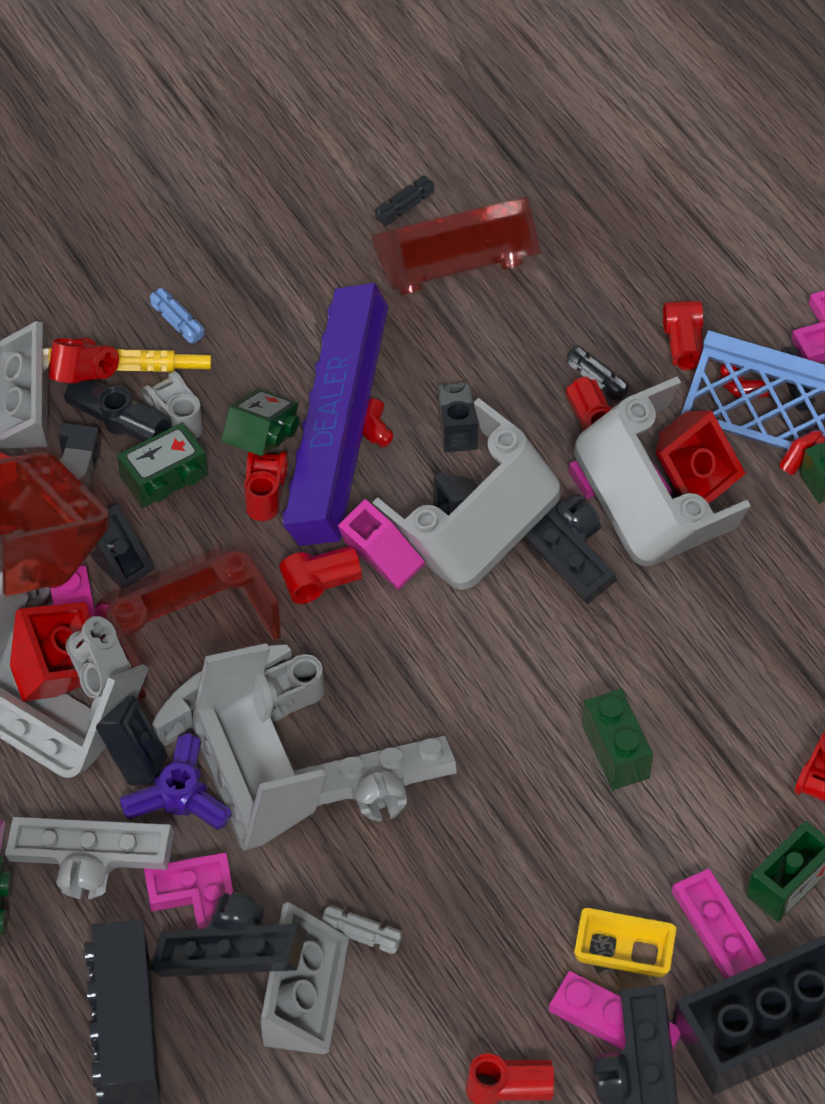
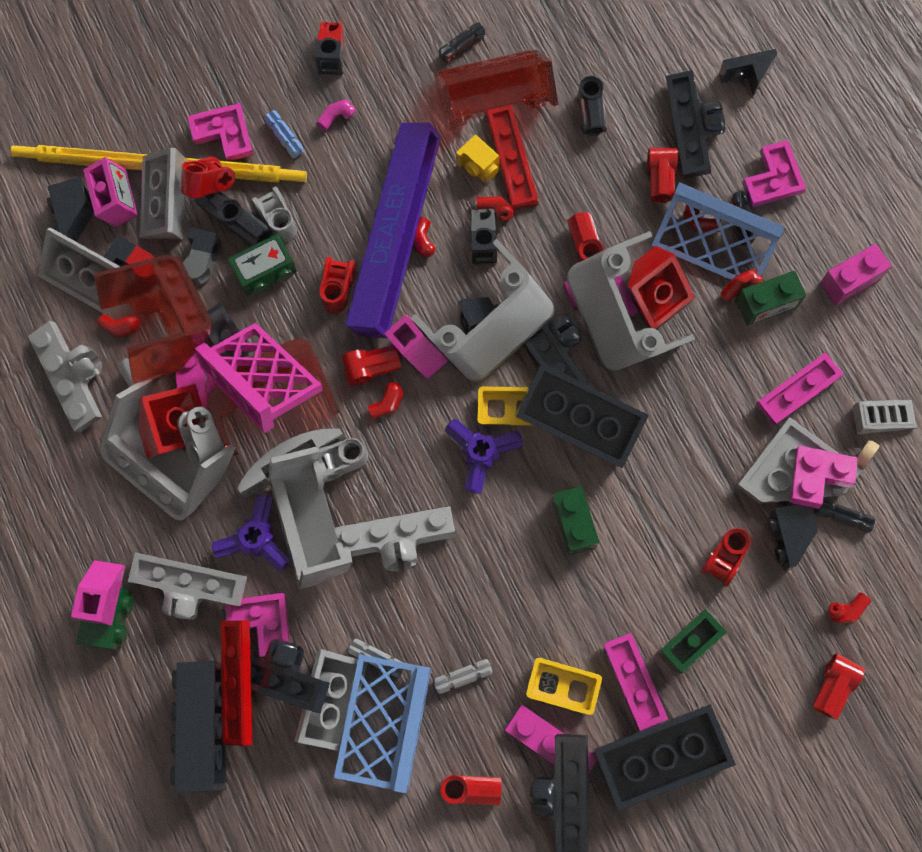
camera: 10 degrees right, 20 degrees up
(96, 306) = (223, 124): none -> dark pink plate
(132, 742) = (223, 501): black slope -> none
(164, 590) = (239, 384): none -> dark pink fence
(170, 963) = (236, 682): none -> red tile
(231, 215) = (330, 48): none -> black leg
(241, 285) = (332, 111): none -> dark pink arm
(260, 422) = (335, 237): dark green brick -> none
(349, 619) = (389, 403): none -> red arm
(417, 1007) = (409, 727): none -> medium blue fence
(440, 327) = (478, 159): none -> yellow brick
(479, 384) = (501, 207): none -> red arm
(480, 665) = (477, 464): none -> dark purple bush
(484, 327) = (512, 157): none -> red tile
(484, 943) = (463, 676): none -> light grey axle
(513, 602) = (509, 395): none -> yellow piece
(583, 260) = (592, 107): none -> black piece
(594, 369) = (592, 204): black axle -> none
(610, 606) = (581, 415): none -> black brick
(718, 273) = (693, 123): none -> black plate
(785, 207) = (751, 66): none -> black slope

